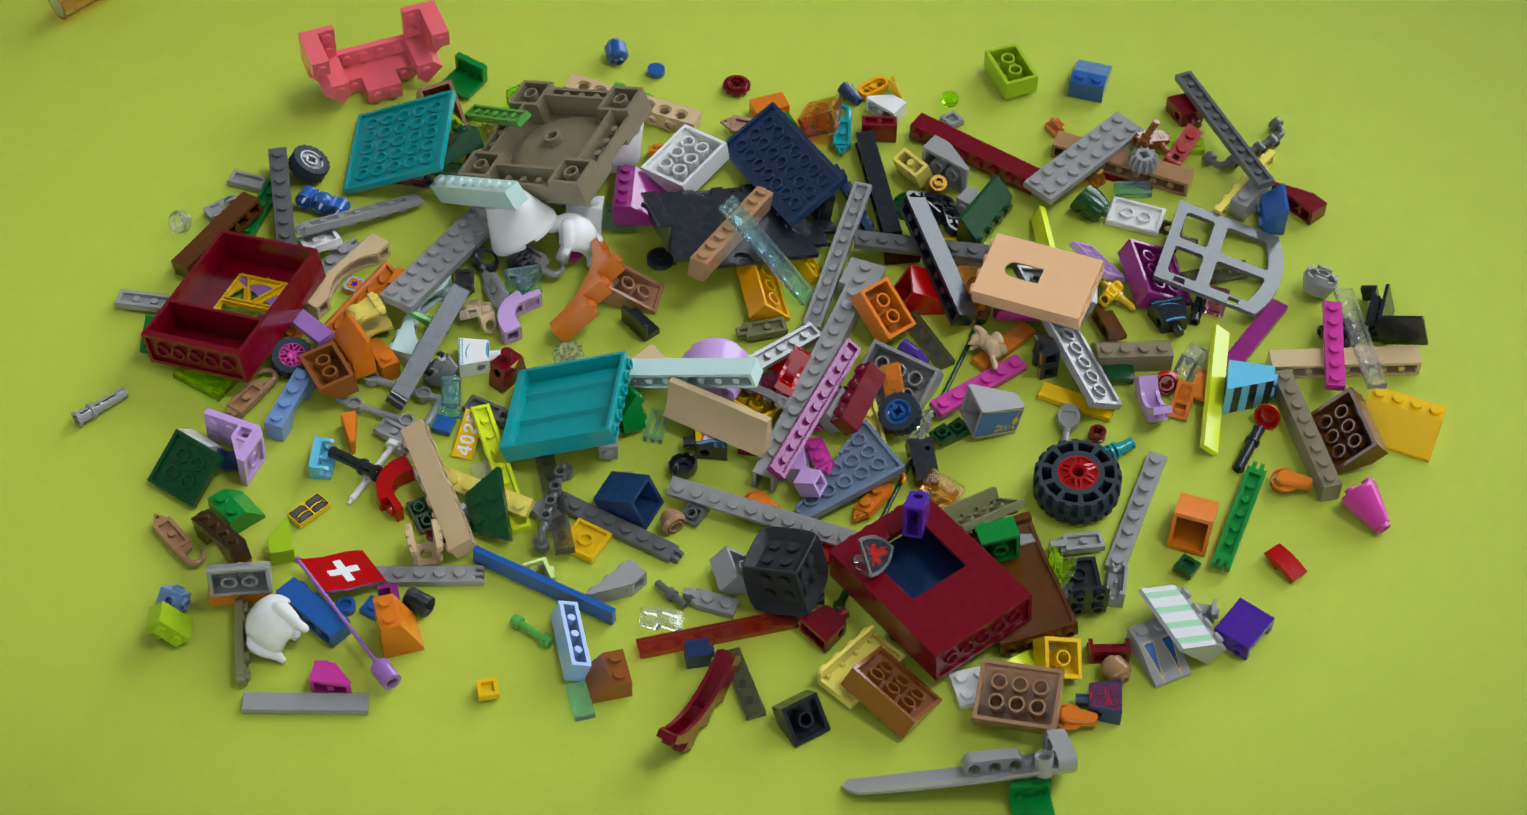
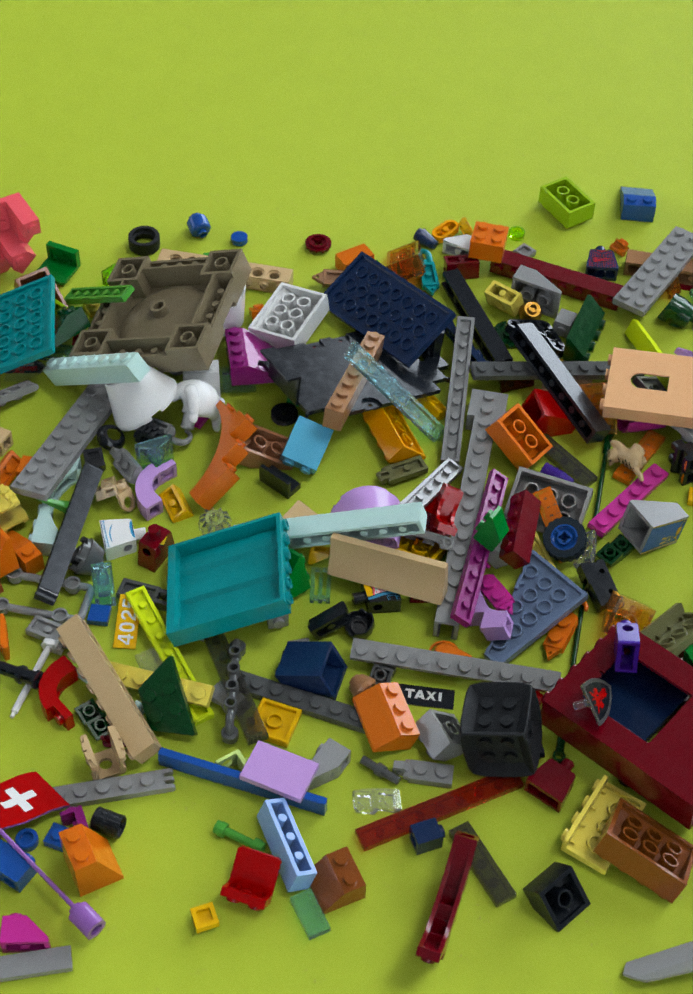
camera: 10 degrees left, 0 degrees up
(535, 332) = (176, 504): none -> yellow slope
(535, 663) = (252, 878): none -> red bracket
(557, 52) = (144, 249): none -> black tyre
(577, 579) = (279, 771): none -> lavender tile
(656, 459) = (329, 620): none -> black panel
(658, 397) = (318, 554): none -> yellow slope
(671, 292) = (306, 445): none -> medium azure slope
(686, 549) = (386, 718): none -> orange slope
(726, 537) = (428, 696): none -> black sticker
(825, 393) = (492, 530): none -> green slope
(910, 106) = (488, 242): none -> orange brick
(1027, 143) = (602, 264): none -> dark blue torso

